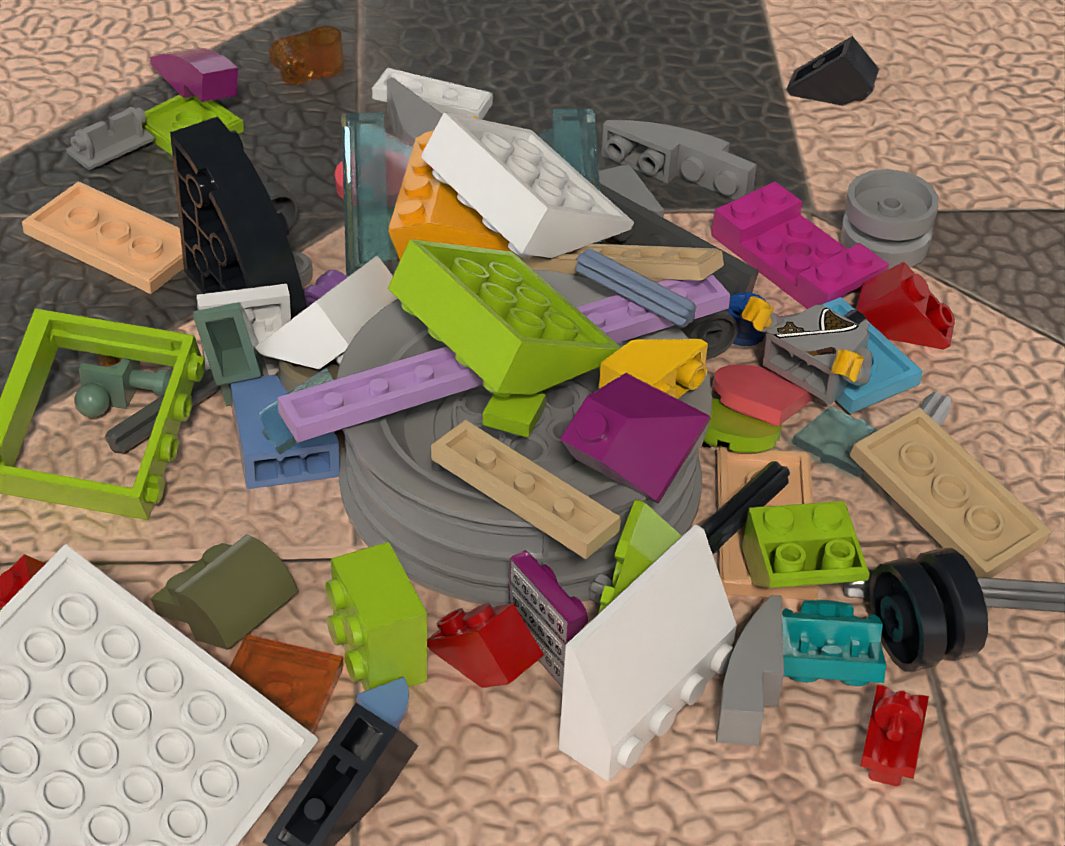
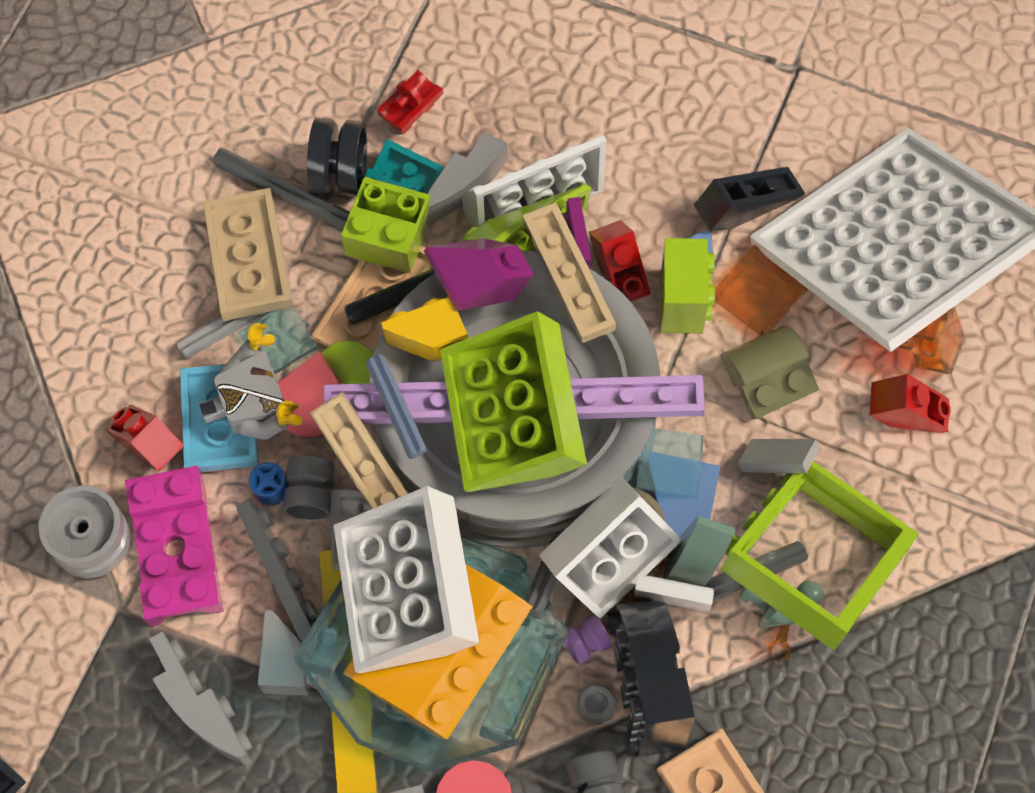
camera: 150 degrees left, 25 degrees up
(175, 492) = (778, 455): none -> light grey tile

